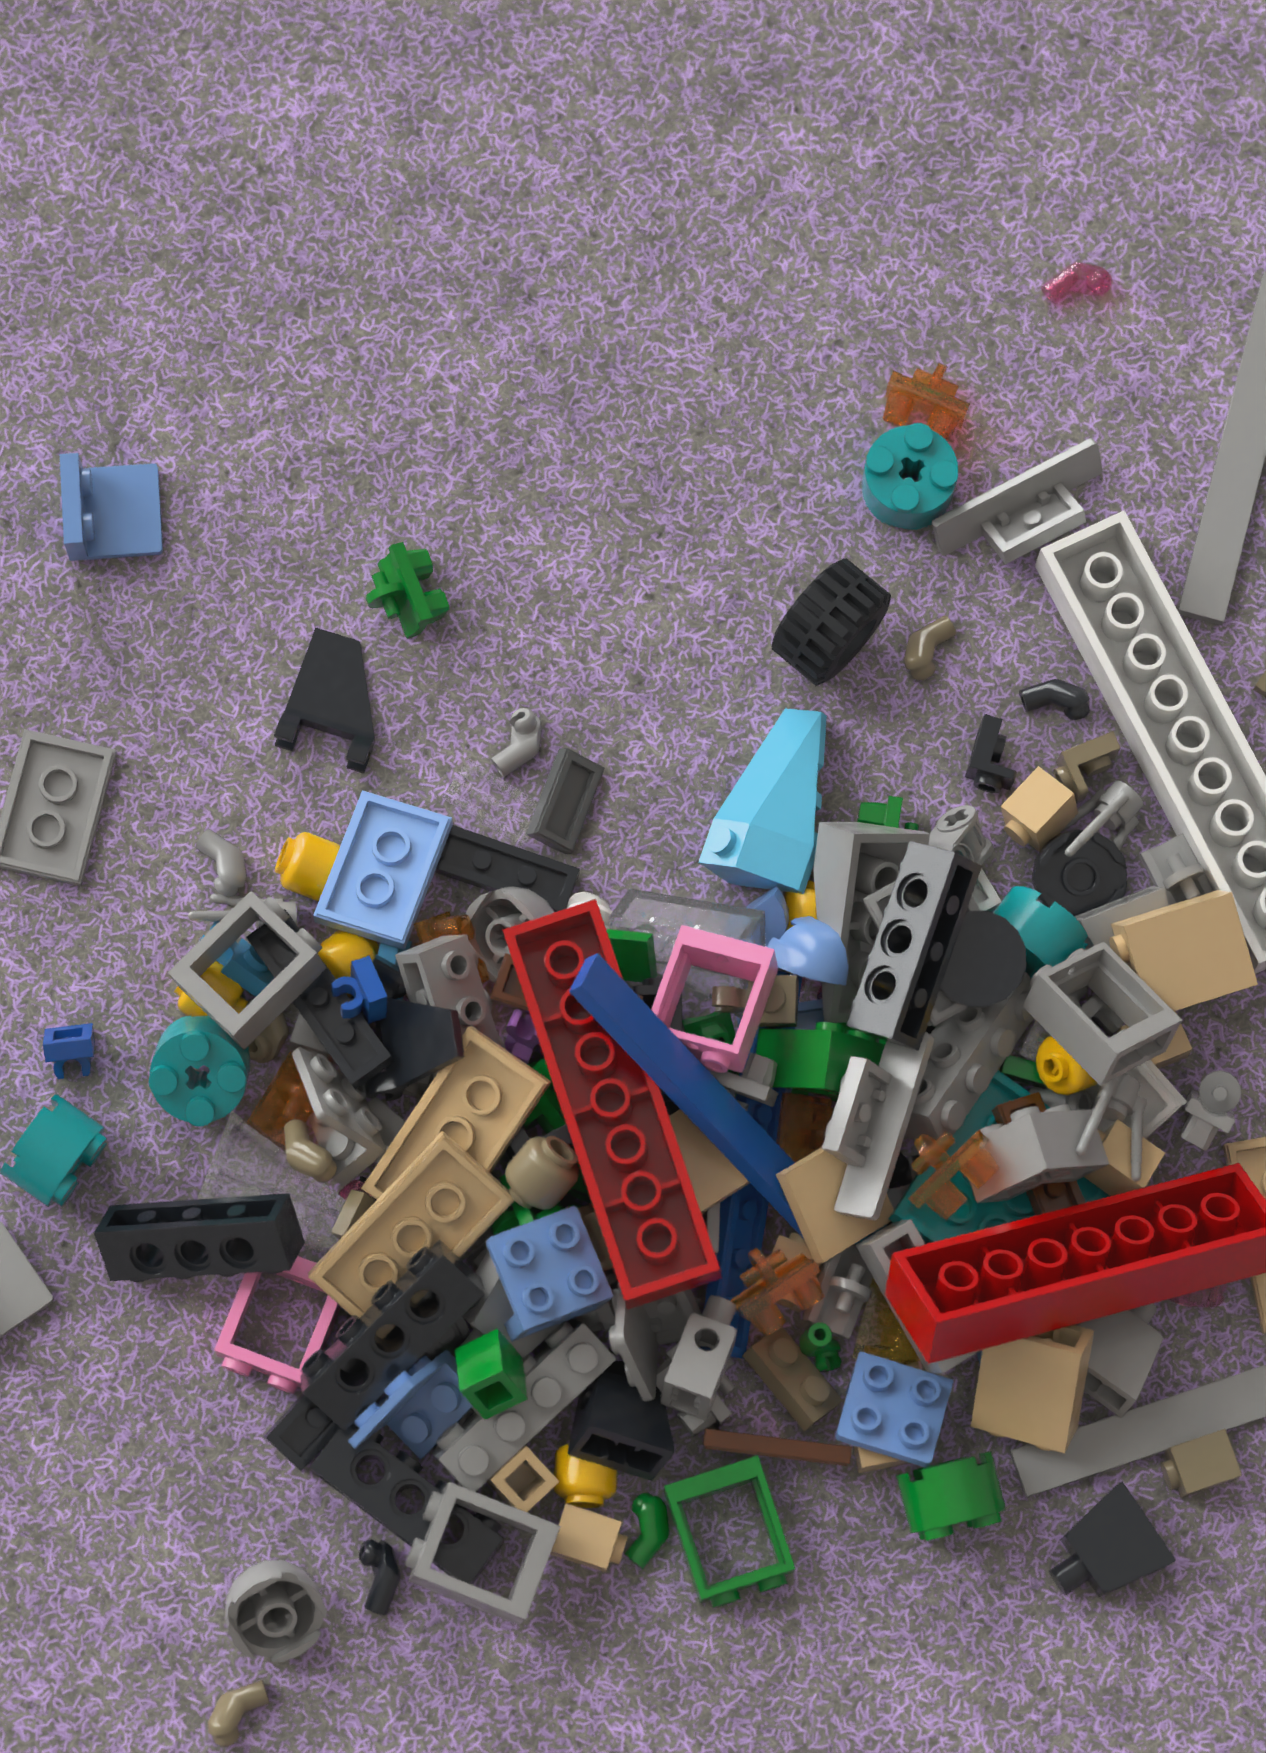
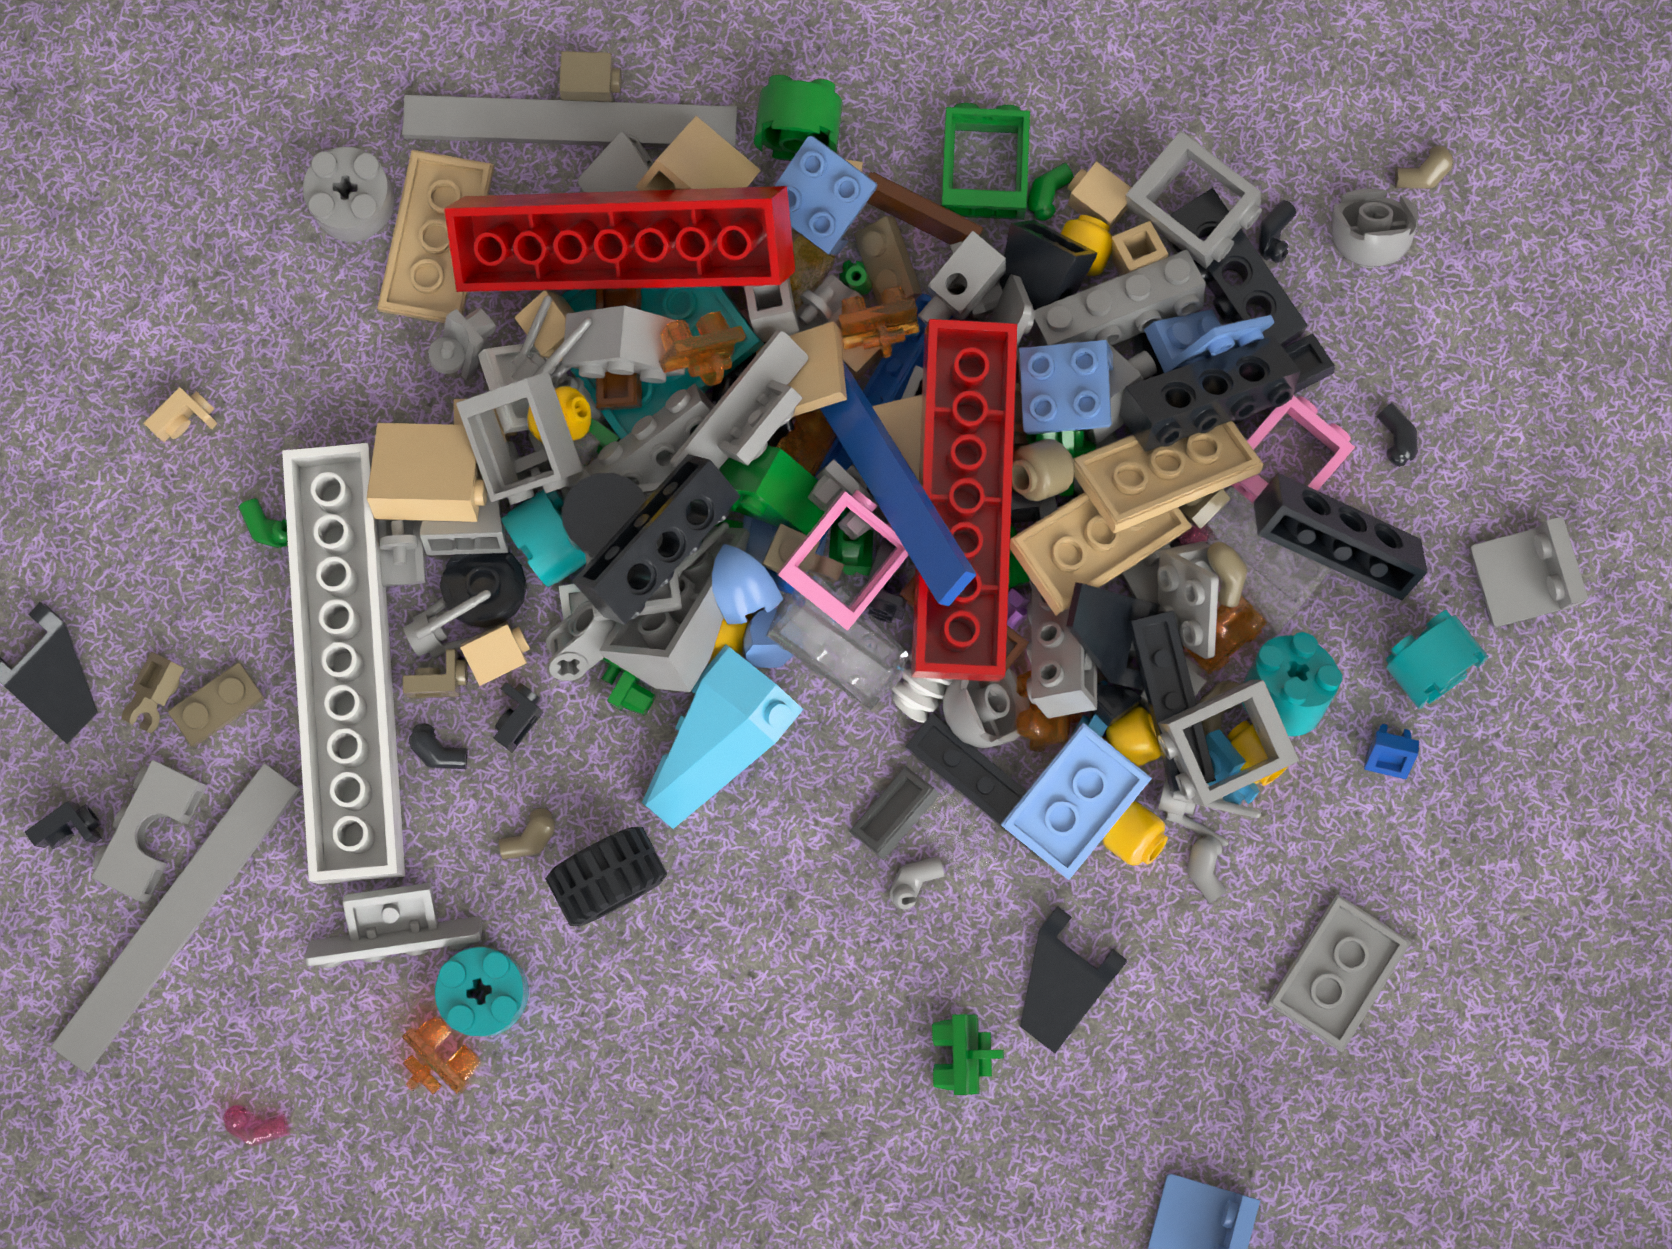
camera: 155 degrees left, 5 degrees up
(163, 1396) = (1403, 433): none -> black arm
(366, 990) = (1133, 686): blue tile -> none
(491, 1374) = (1140, 329): green brick -> none
(634, 954) = (892, 642): green tile -> none
(1111, 1546) = (687, 42): black torso -> none

